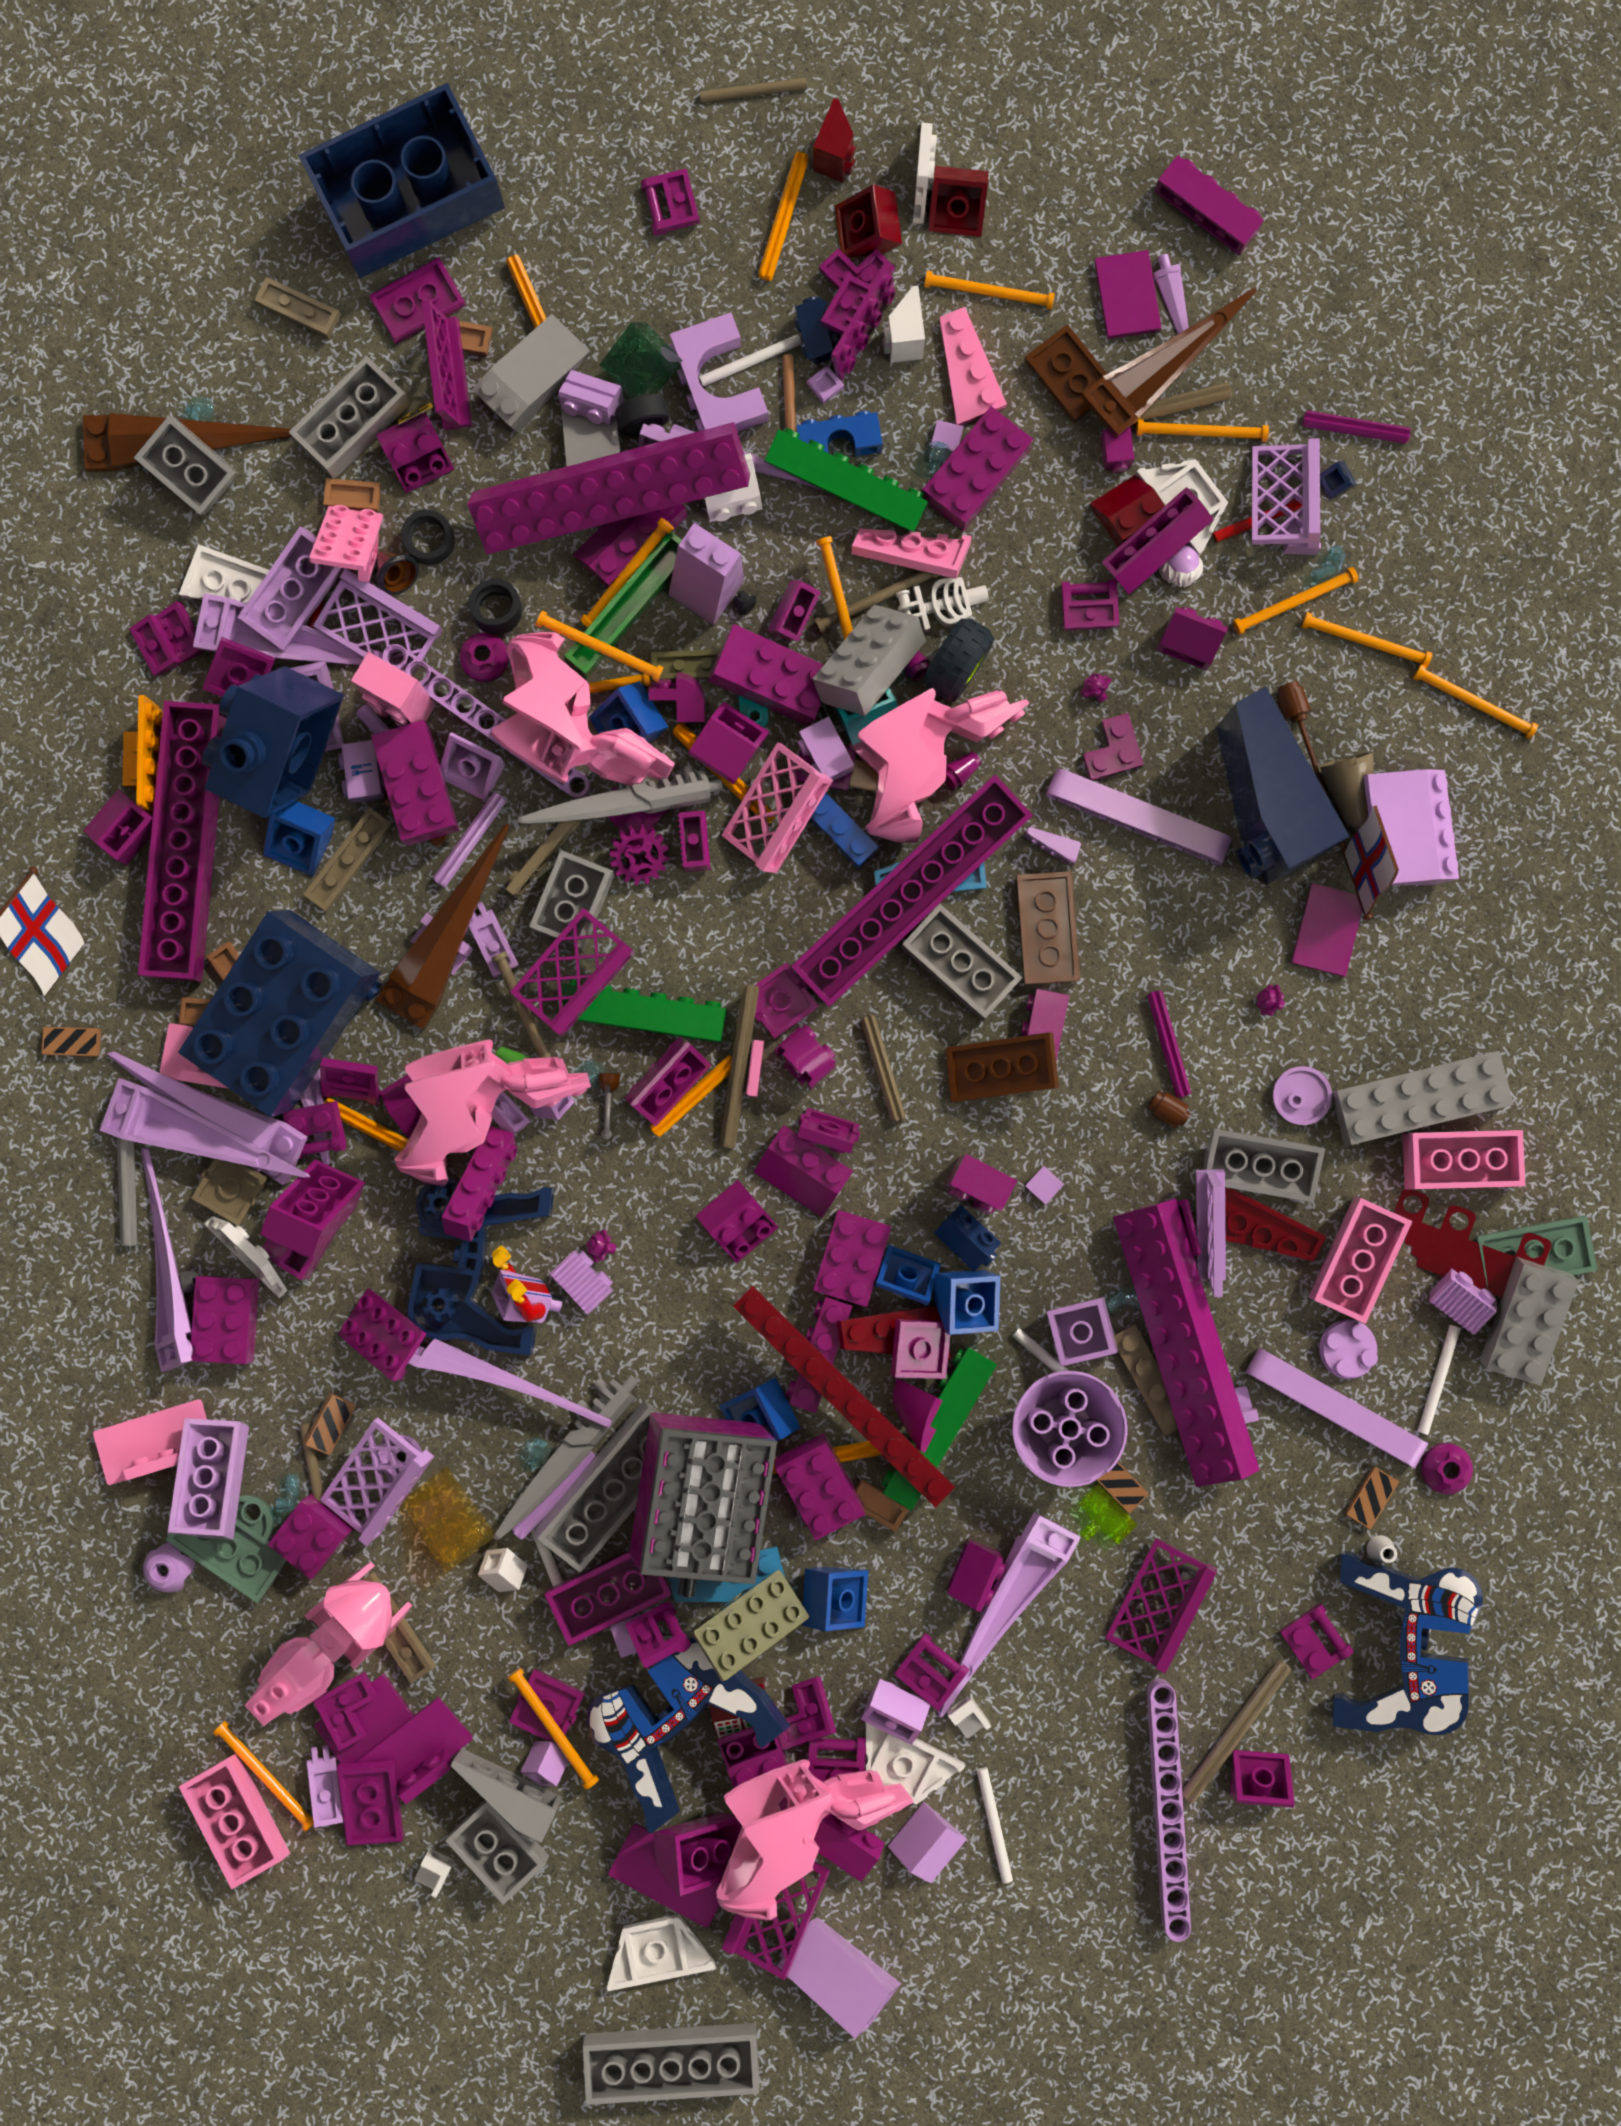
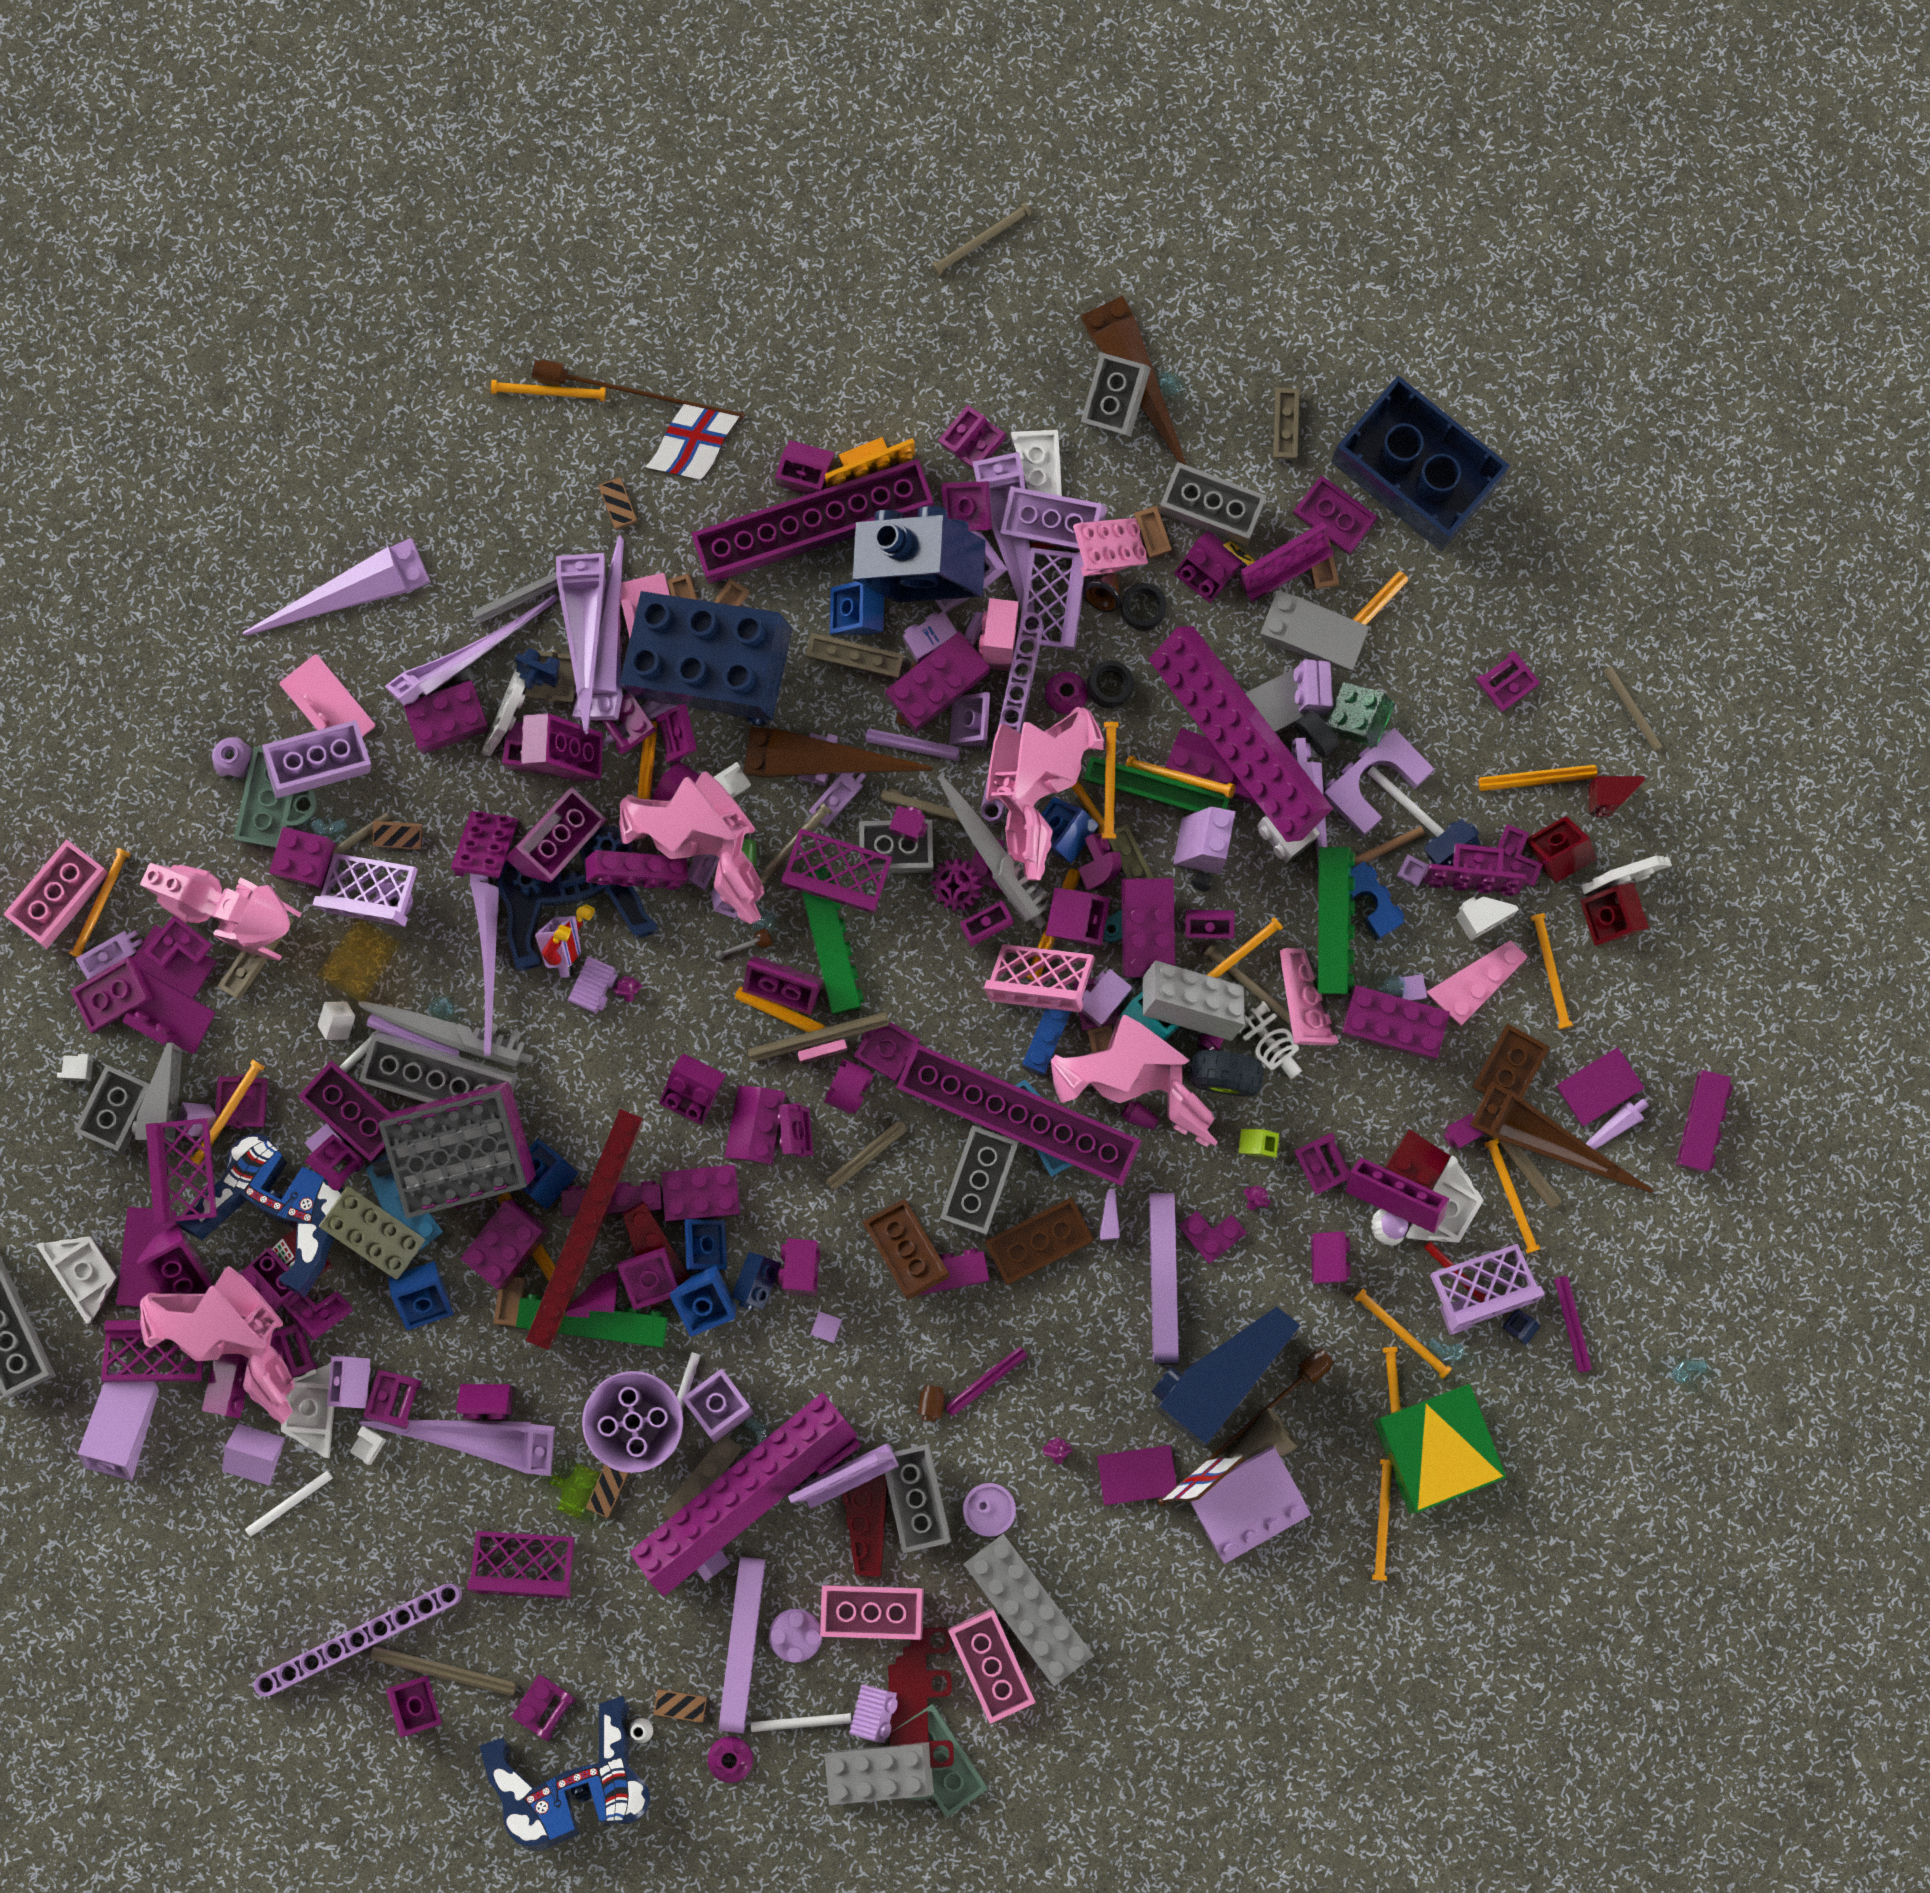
camera: 65 degrees right, 5 degrees down
(38, 1329) = (380, 576): none -> lavender plate
(216, 1203) = (536, 672): none -> dark blue hips
(407, 1254) = (556, 837): none -> magenta slope
(426, 1041) = (733, 780): none -> white panel
(555, 874) = (908, 823): none -> magenta brick
(596, 1832) = (159, 1170): none -> magenta fence
(1042, 660) = (1258, 1143): none -> lime brick
(1431, 612) = (1439, 1449): none -> tile
(1446, 335) = (1686, 1367): none -> clear light blue arm

